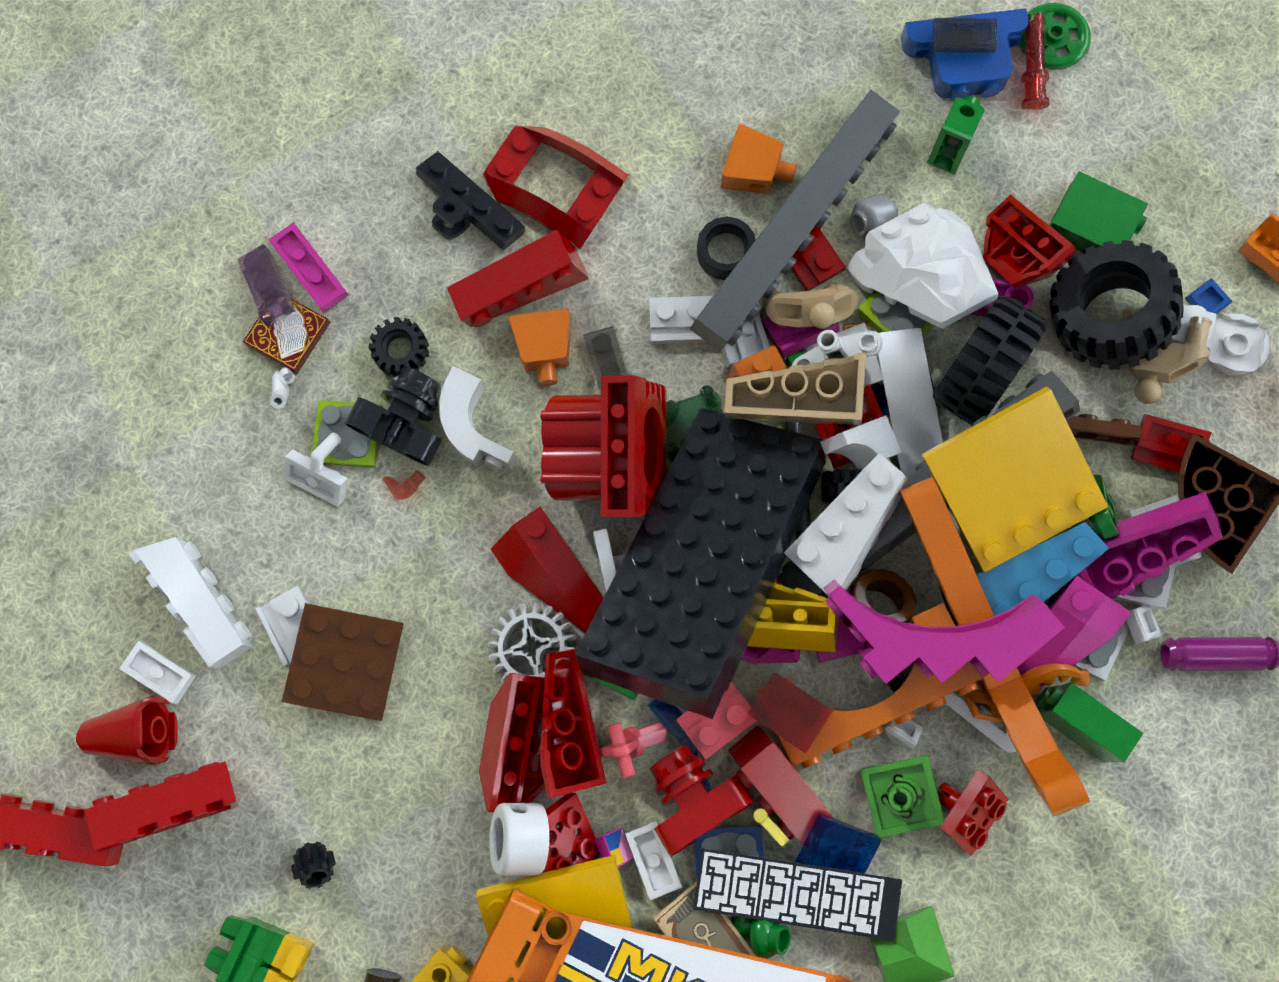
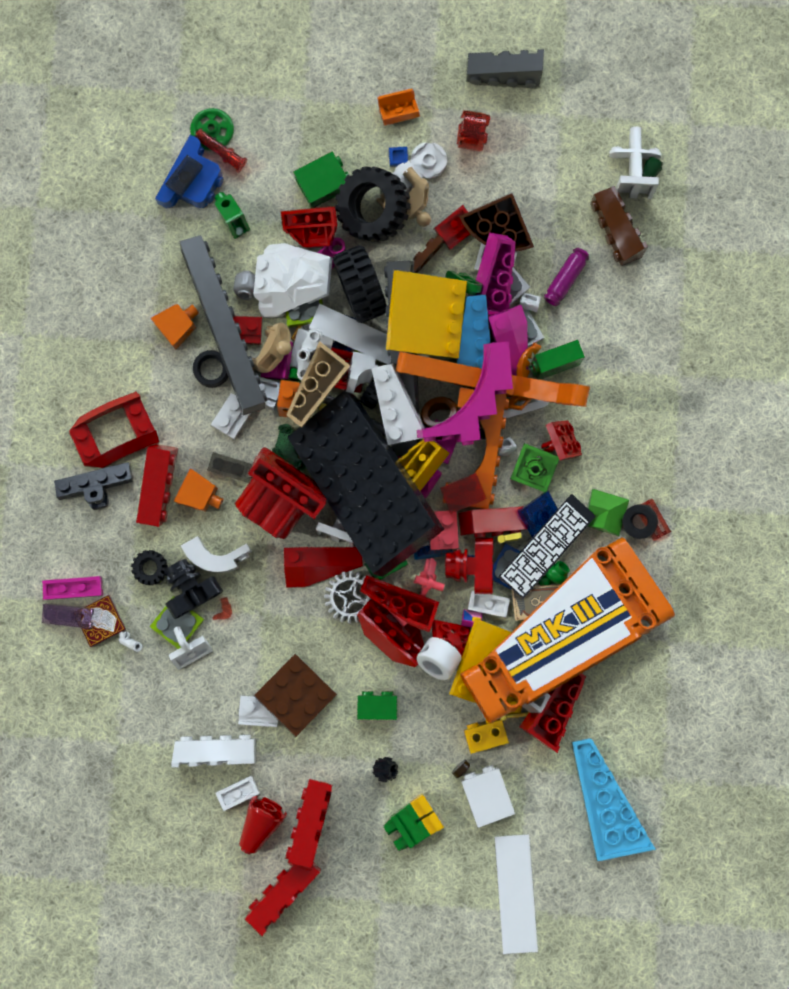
camera: 60 degrees left, 5 degrees up
(398, 791) = (377, 706): none -> green brick

